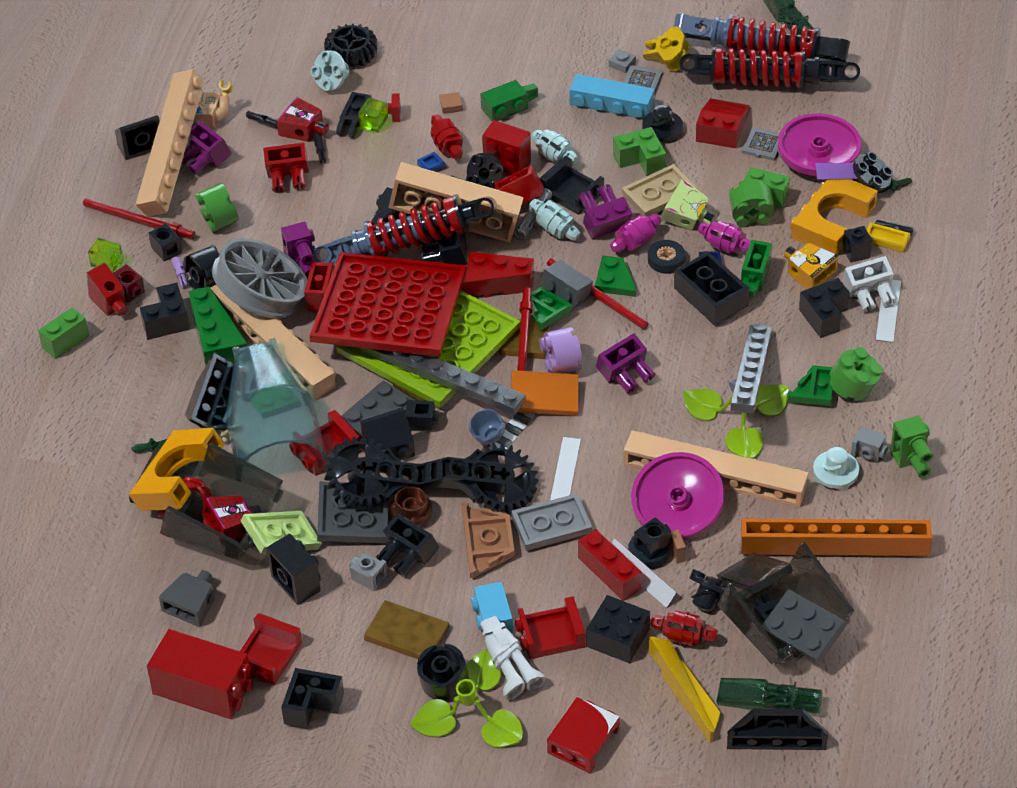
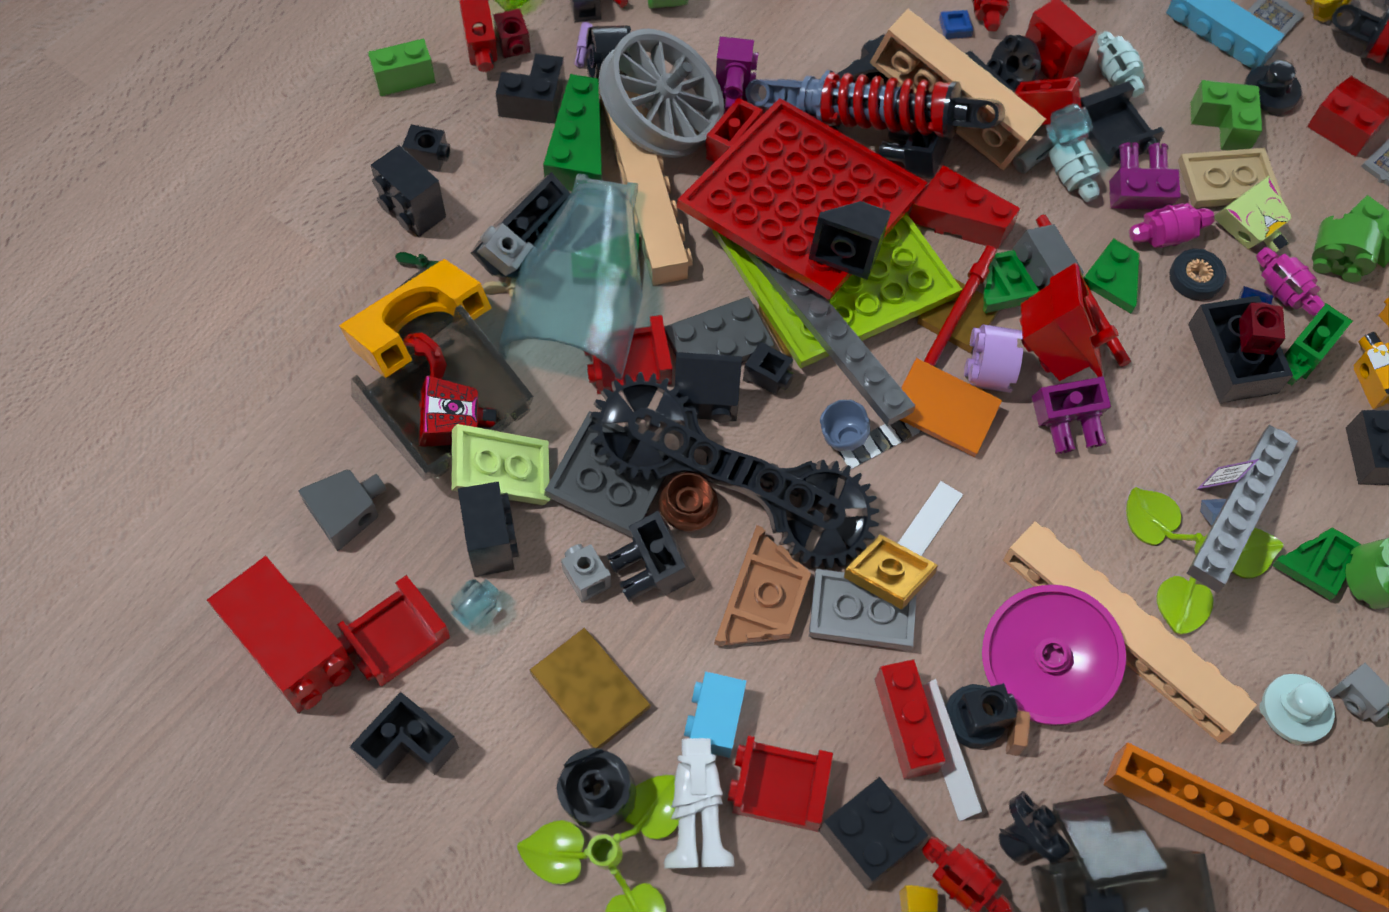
camera: 20 degrees right, 15 degrees up
(112, 376) = (427, 146): none -> black brick
(120, 403) = (408, 191): none -> black brick
(211, 408) = (492, 250): none -> light grey brick
(309, 614) = (476, 604): none -> clear light blue head
(436, 311) = (850, 237): none -> black slope
(540, 195) = (1069, 125): none -> clear light blue head
(557, 493) = (890, 571): none -> pearl gold tile
(594, 315) = (1061, 327): none -> red piece
(717, 267) = (1262, 328): none -> dark red brick
(736, 359) = (1227, 474): none -> sticker

